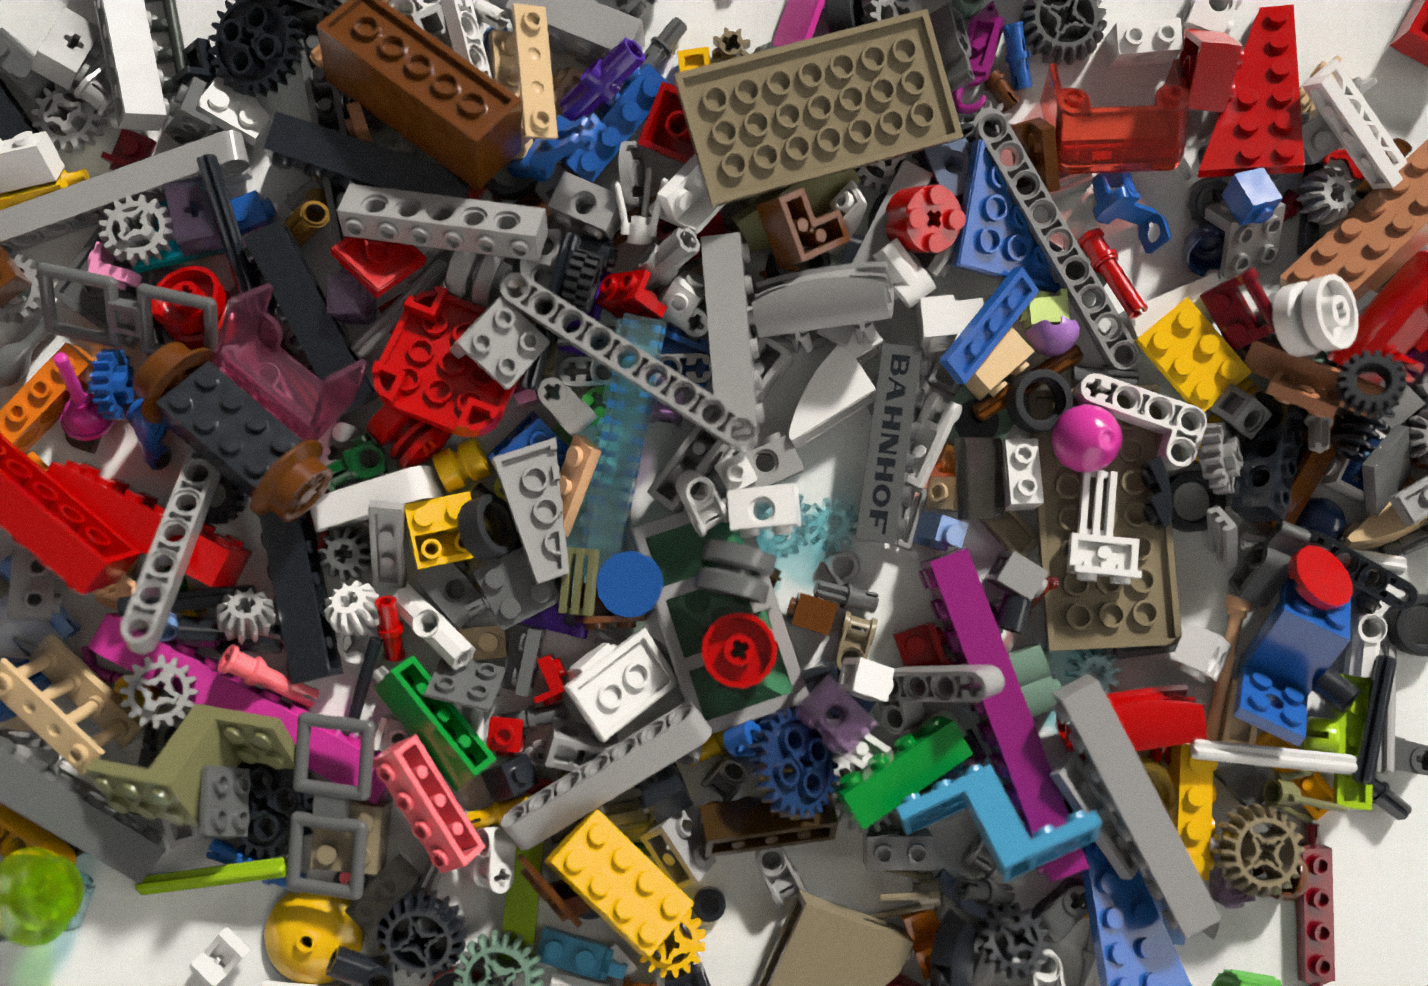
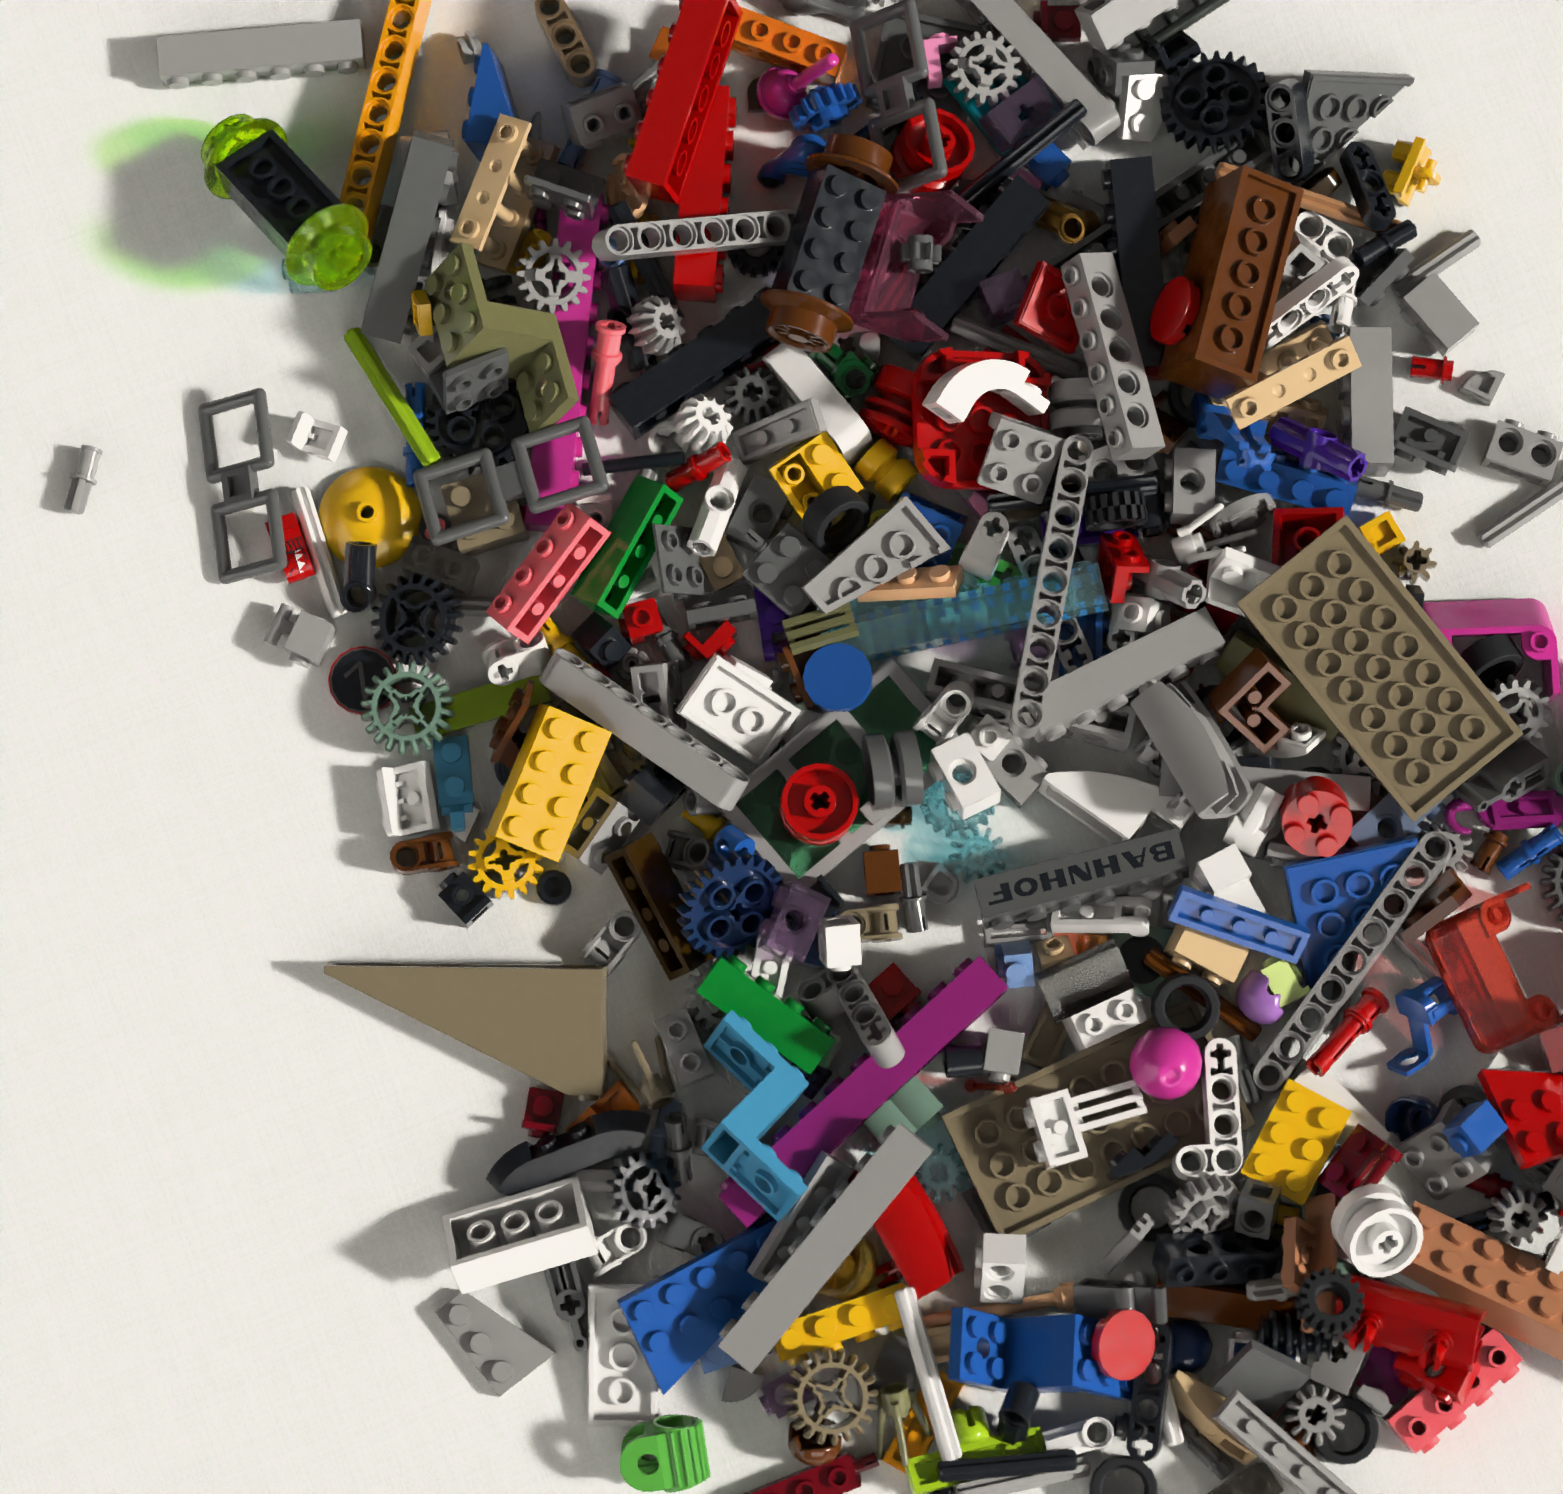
camera: 70 degrees right, 5 degrees down
(85, 648) = (564, 189): none -> dark grey bracket
(142, 824) = (422, 312): none -> yellow tile
(279, 354) = (920, 254): none -> dark grey gear
(414, 367) = (960, 388): none -> white arch
(424, 147) = (1175, 309): none -> red tile

